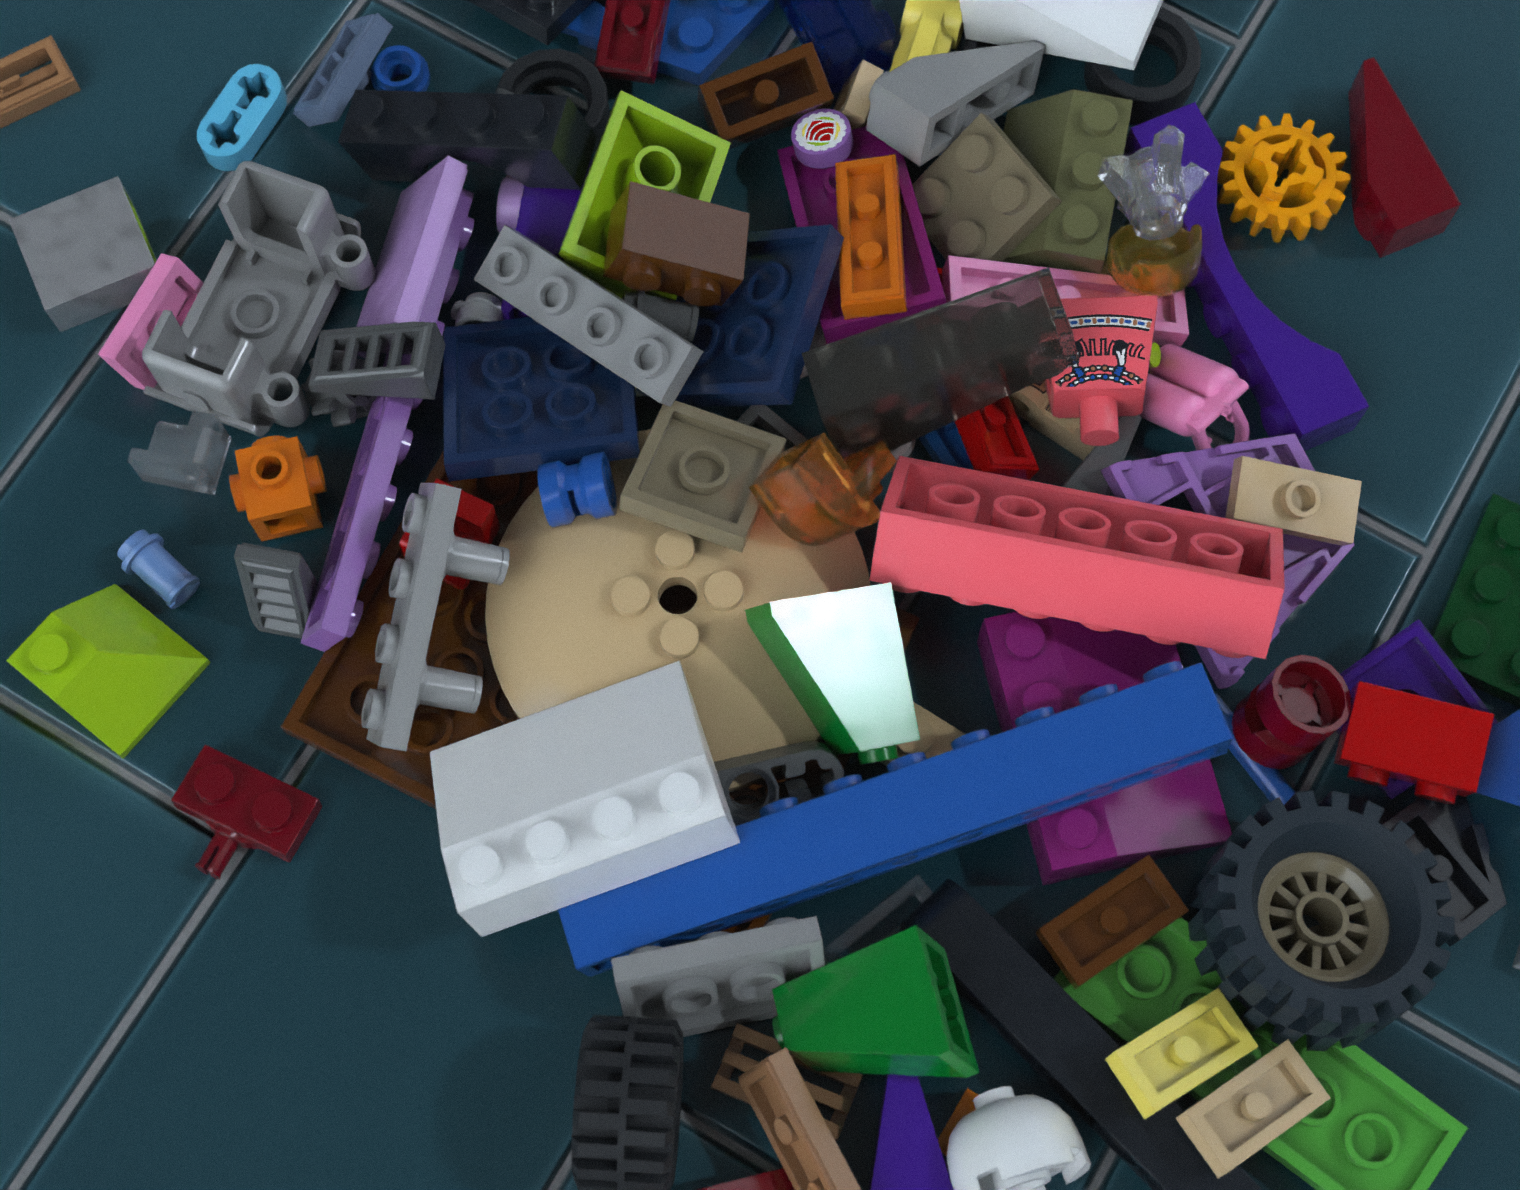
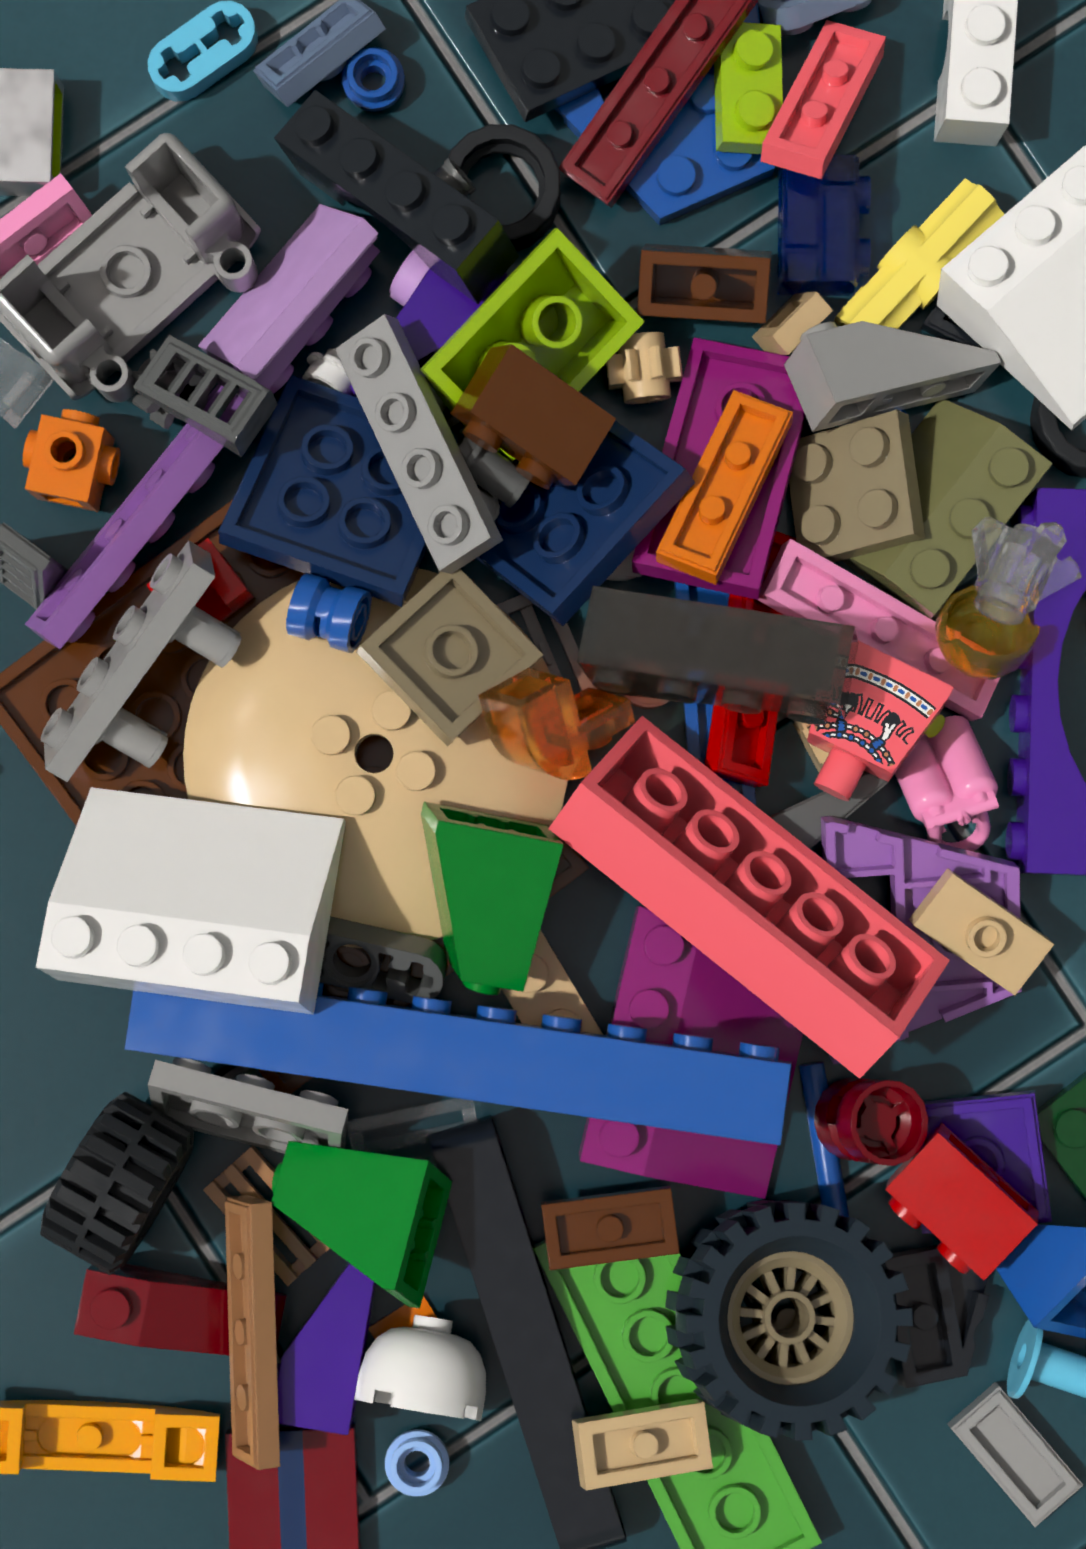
camera: 25 degrees right, 15 degrees up
(750, 187) = (644, 368): none -> tan gear
(822, 138) = (738, 353): tile -> none
(1181, 1053) = (606, 1369): light yellow plate -> none

